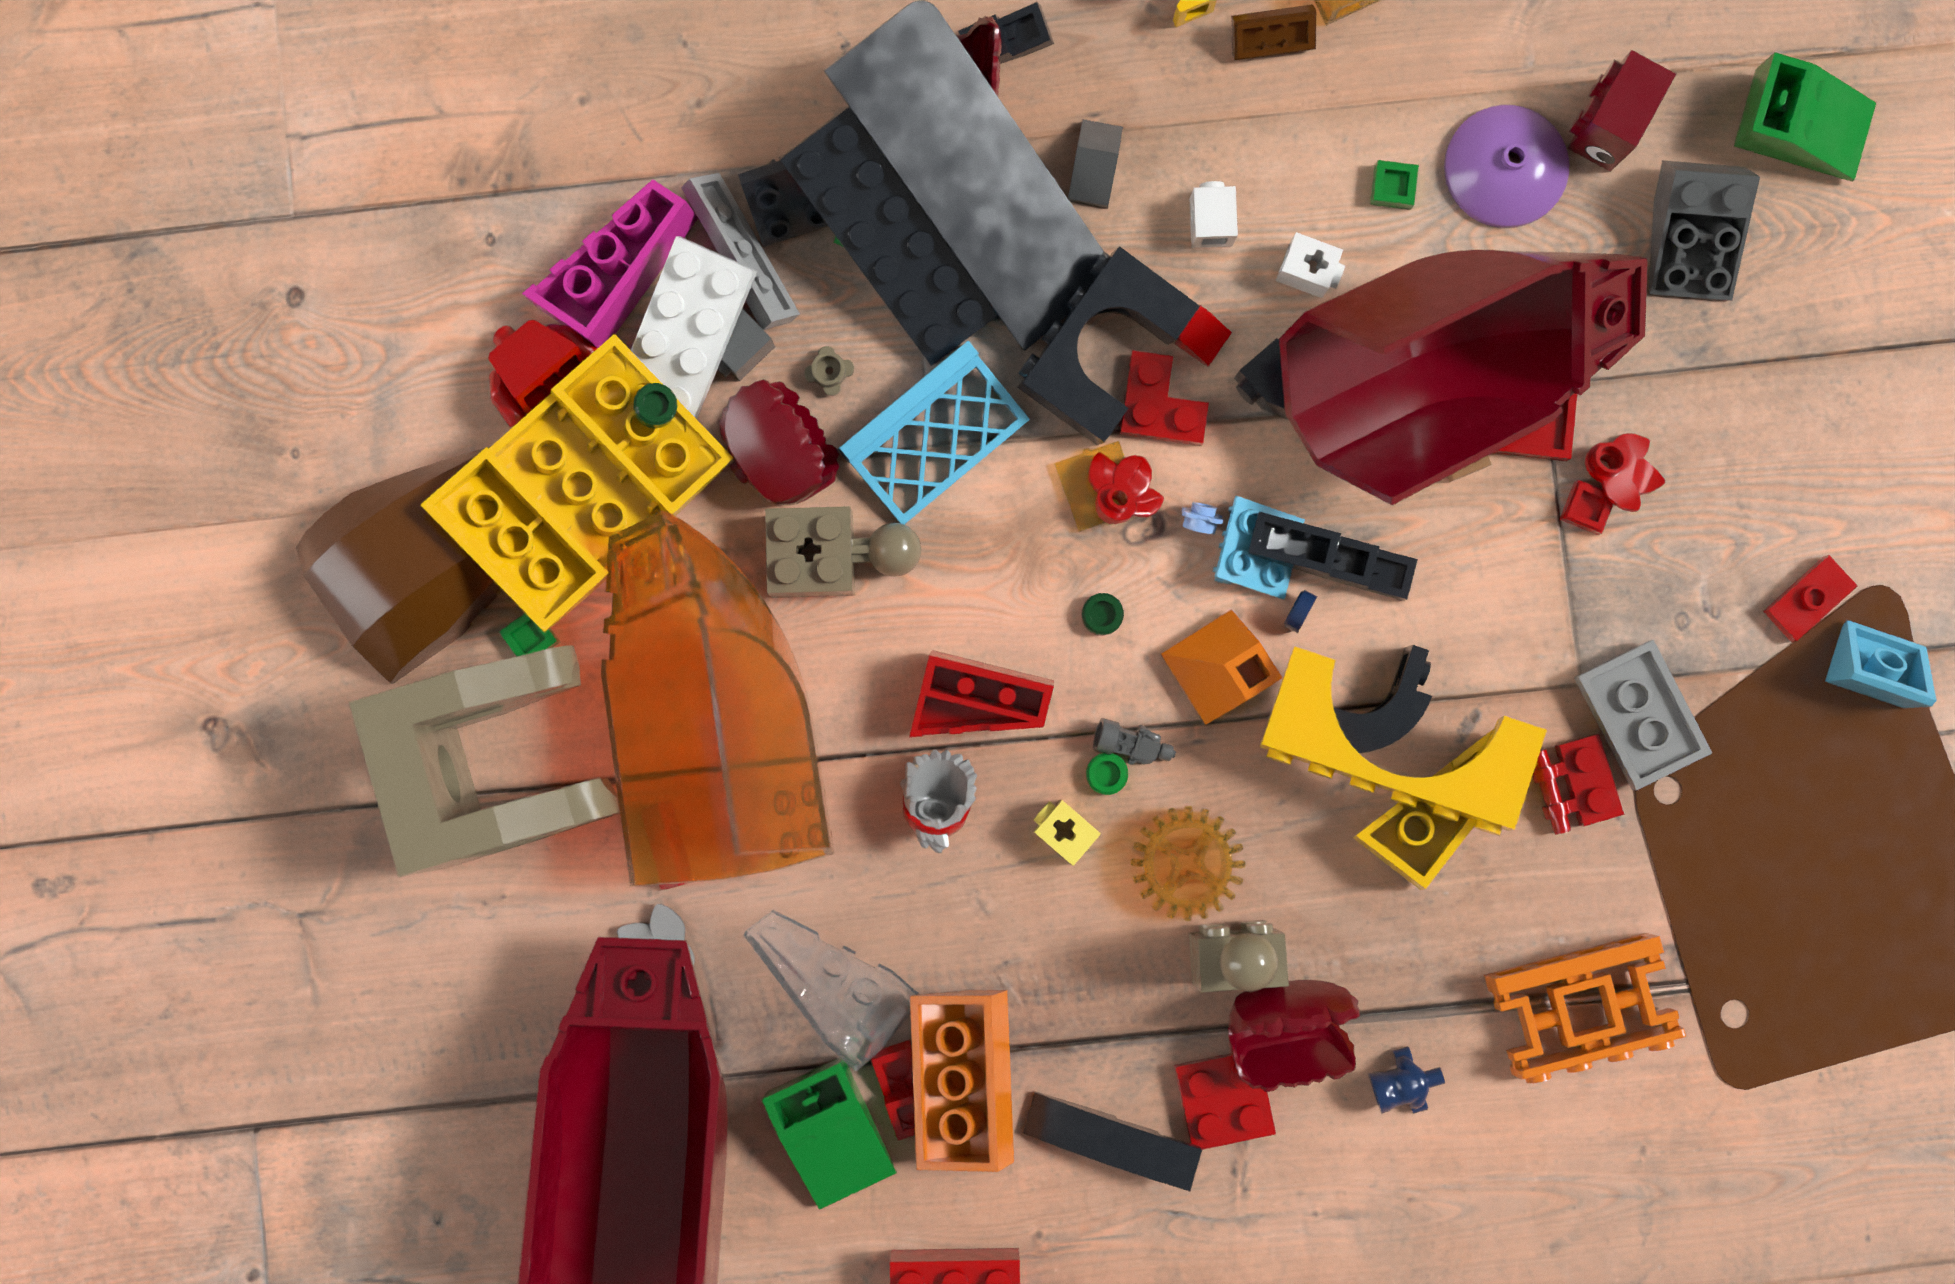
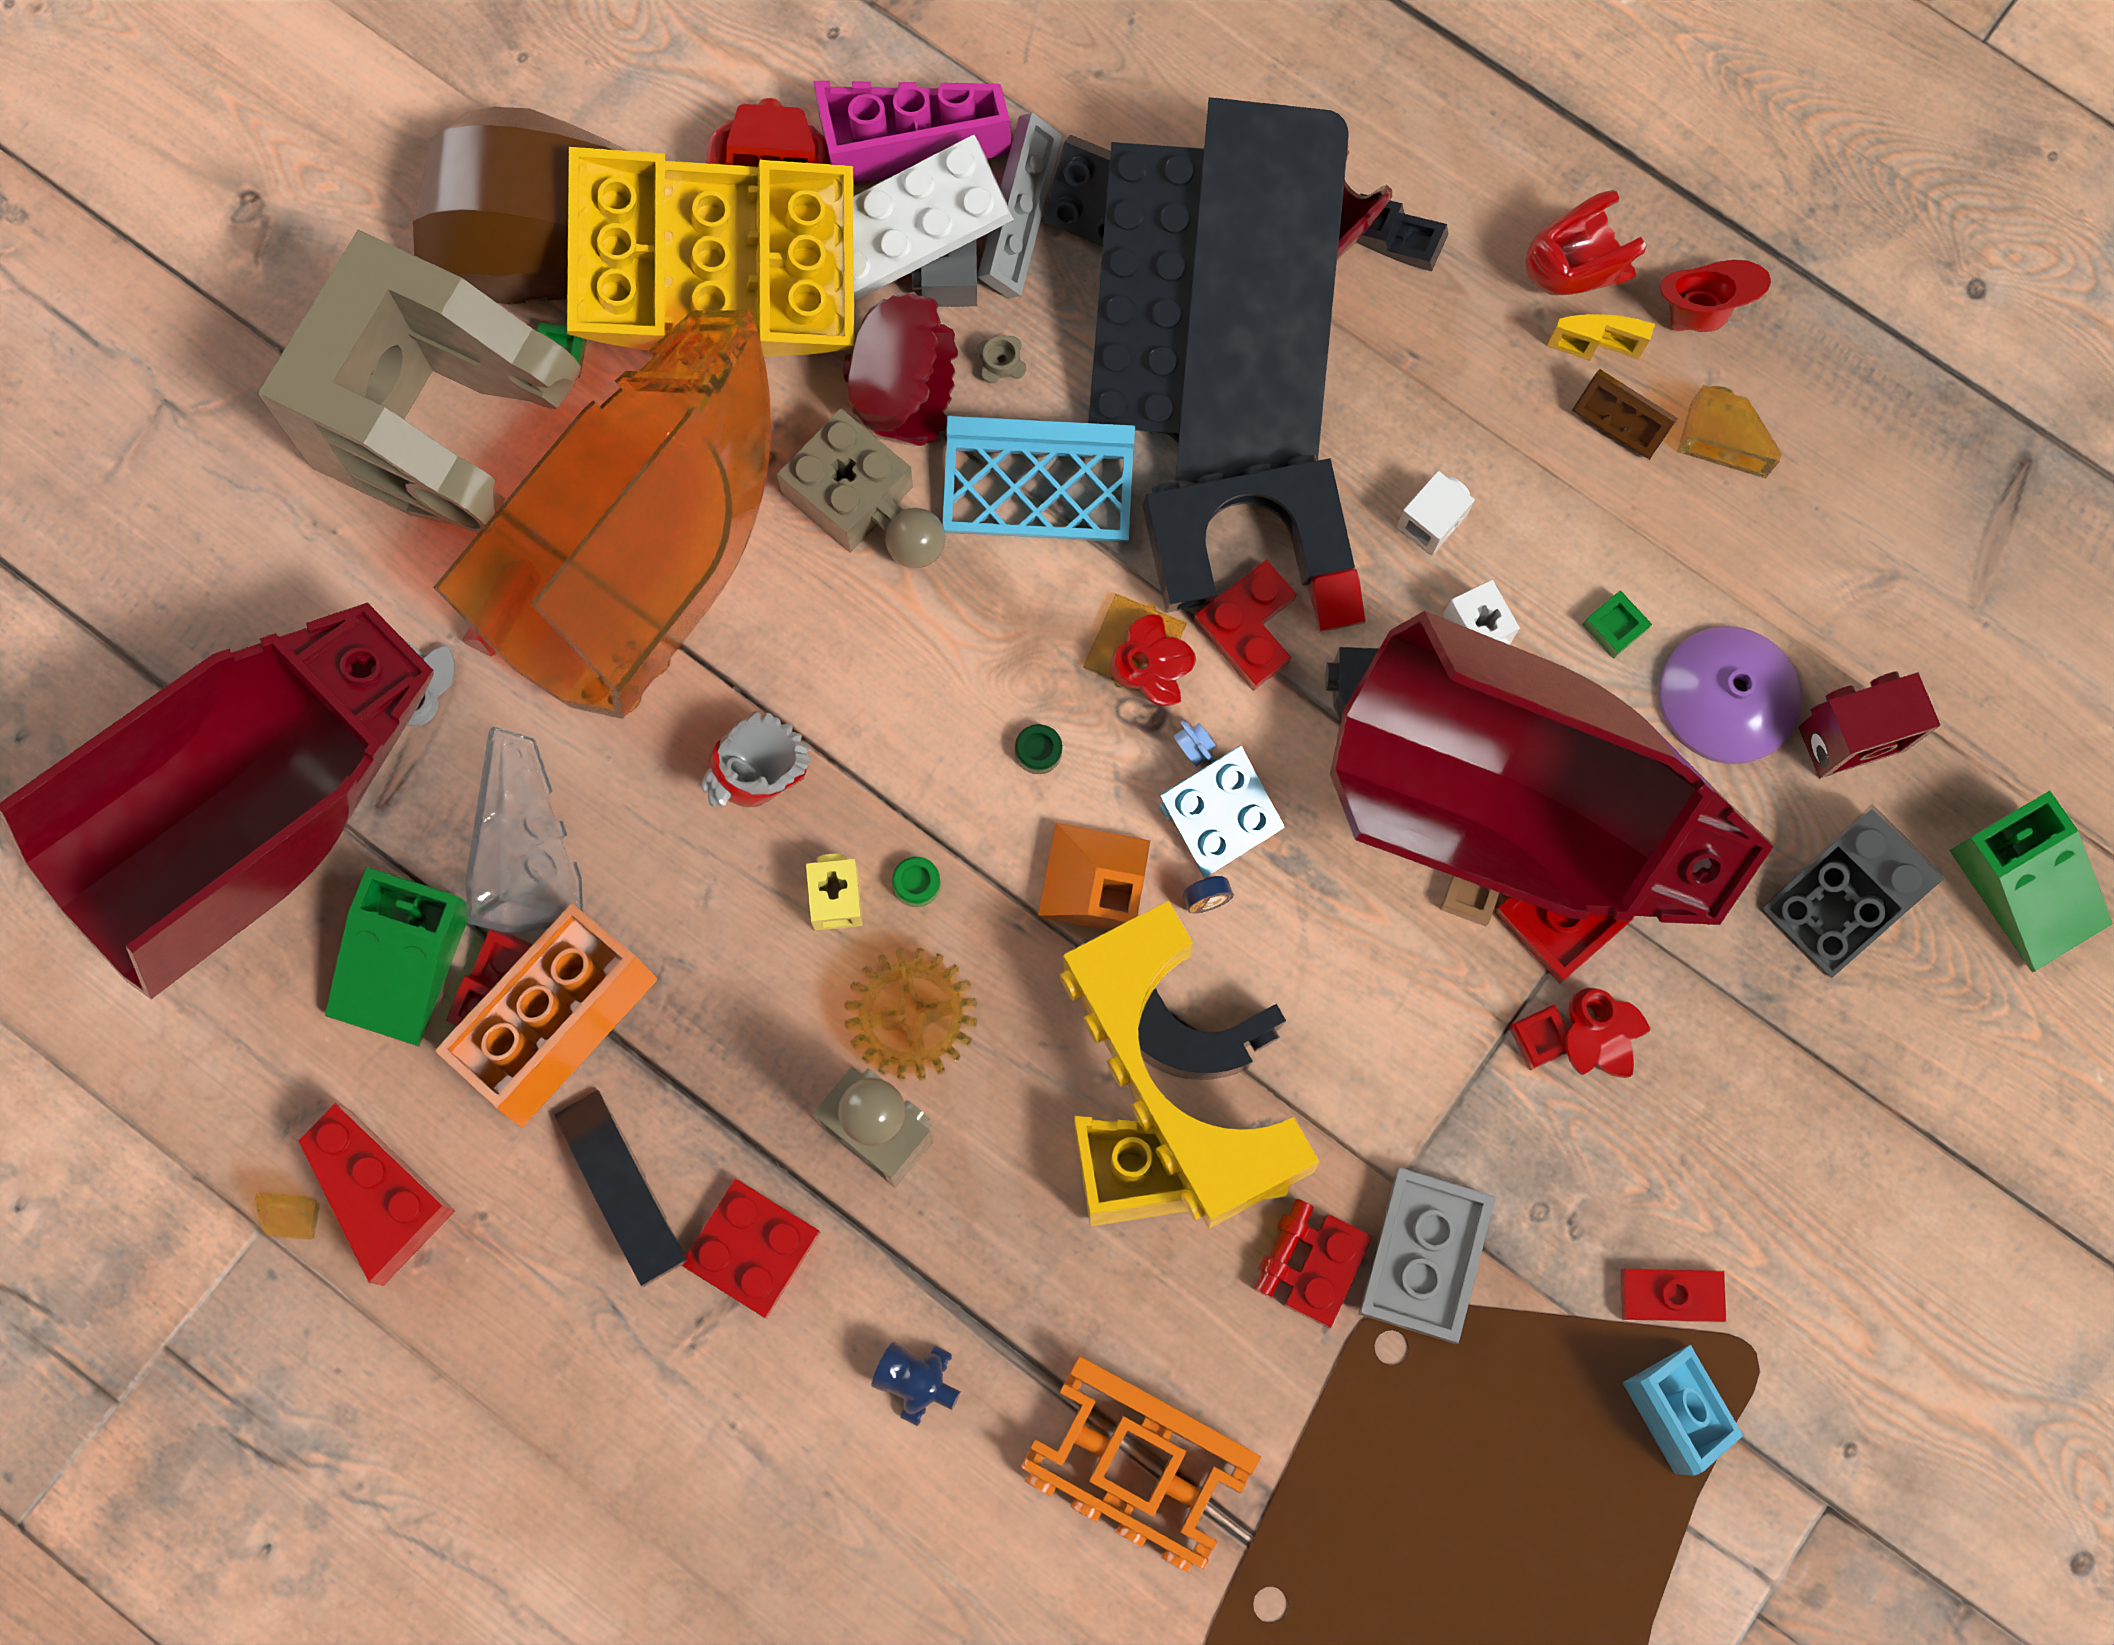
camera: 40 degrees right, 10 degrees down
(655, 405) = (830, 246): dark green tile -> none
(978, 696) = (866, 712): red wedge -> none
(1095, 163) = (1376, 388): dark grey slope -> none
(1140, 745) = (967, 883): dark grey piece -> none
(1292, 1034) = (856, 1234): dark red animal -> none
(1332, 556) = (1277, 872): black slope -> none

